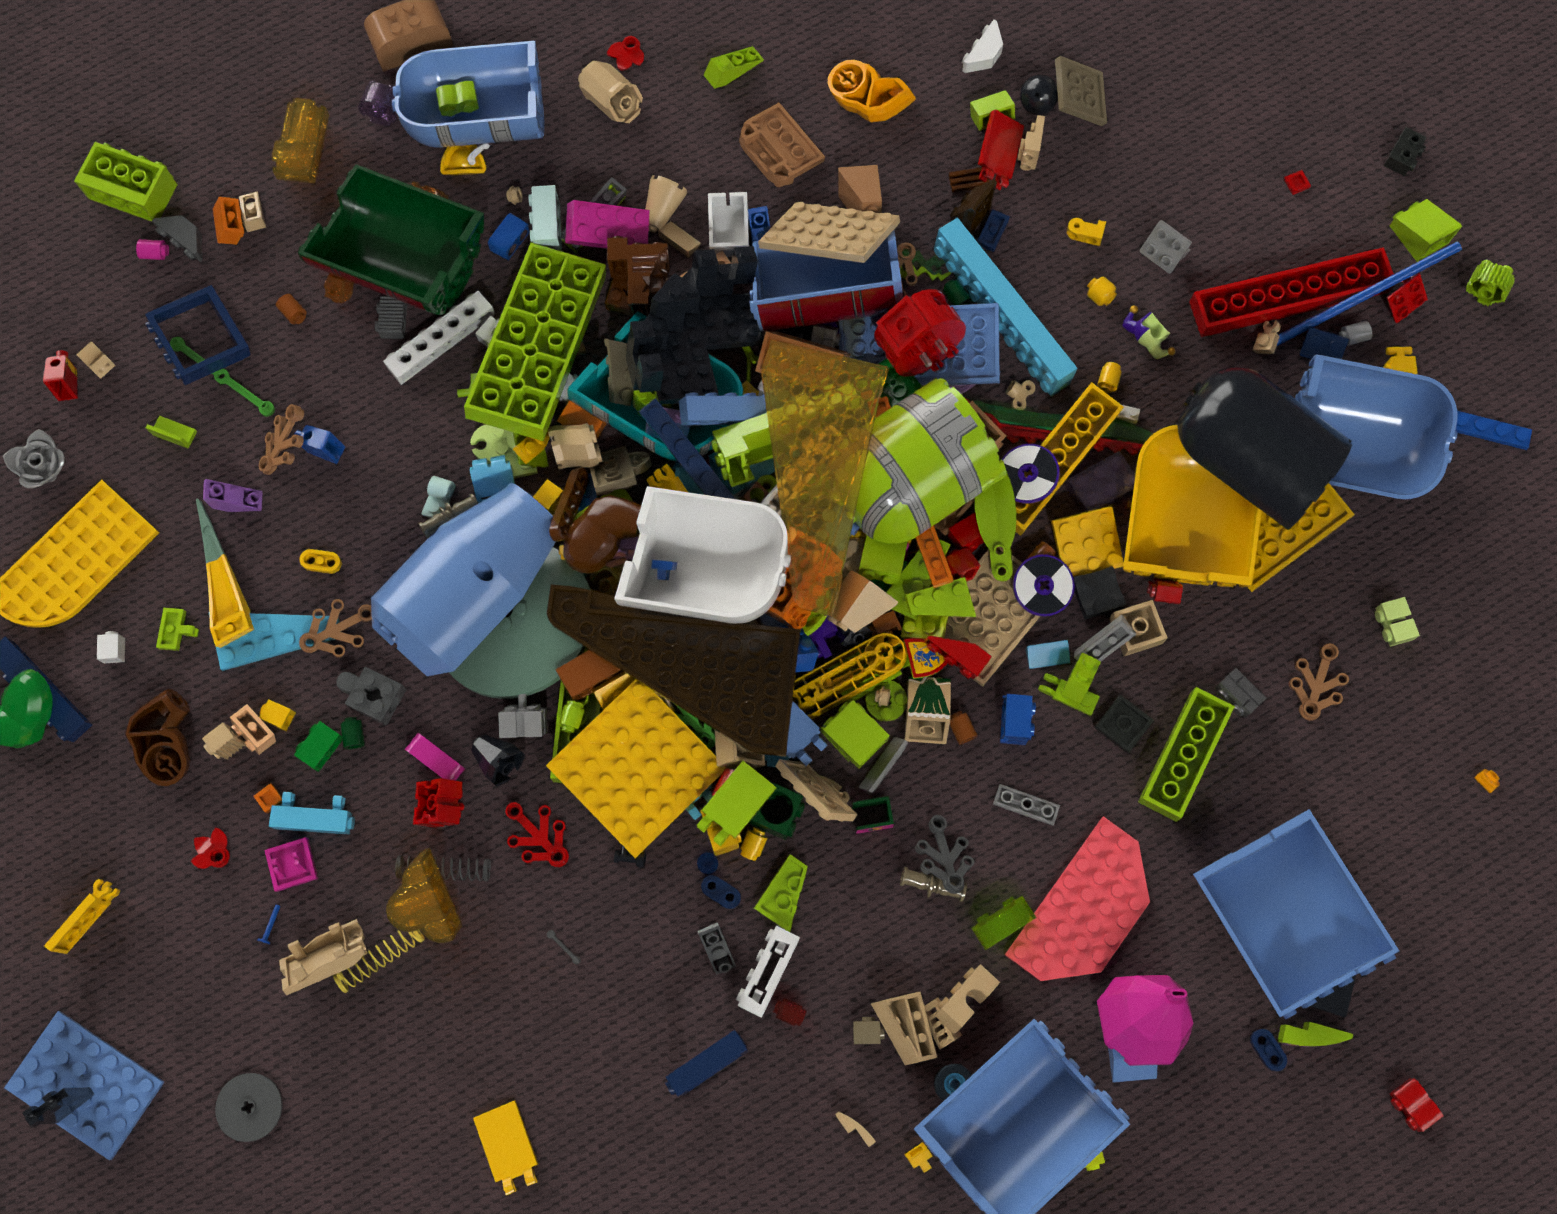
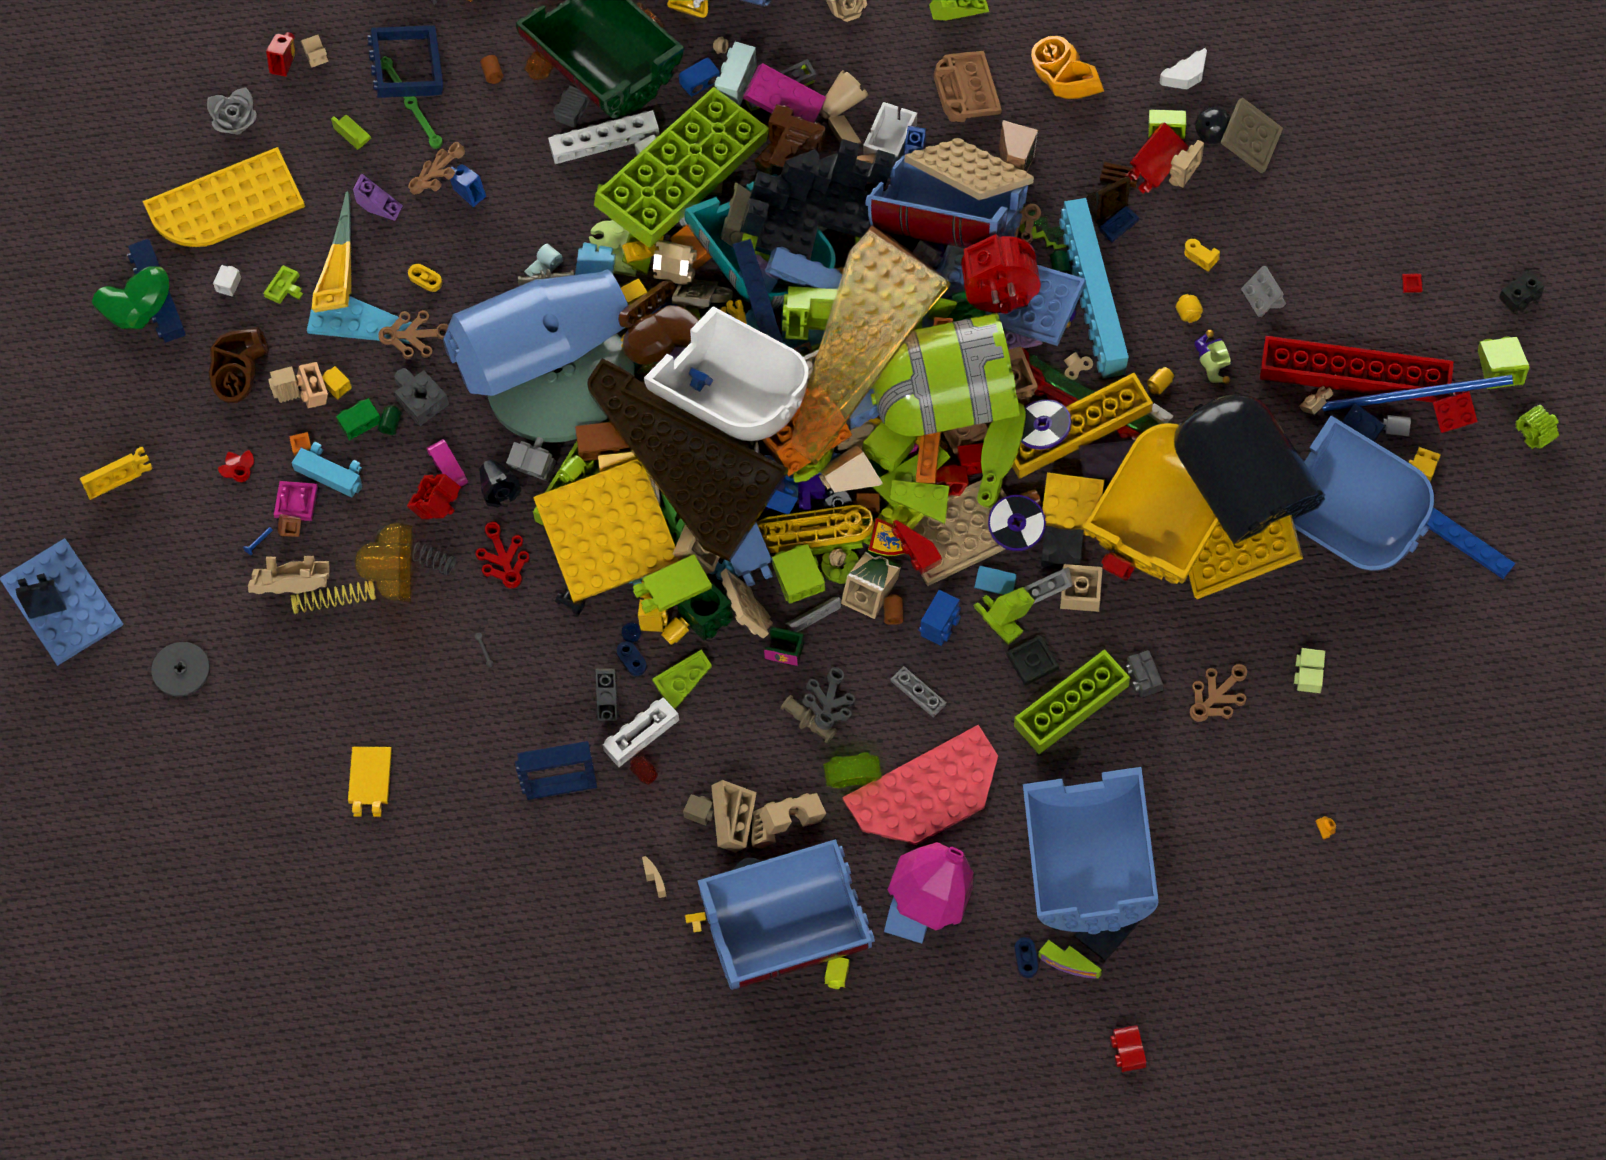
camera: 25 degrees right, 10 degrees down
(296, 896) = (289, 525): none -> dark orange slope

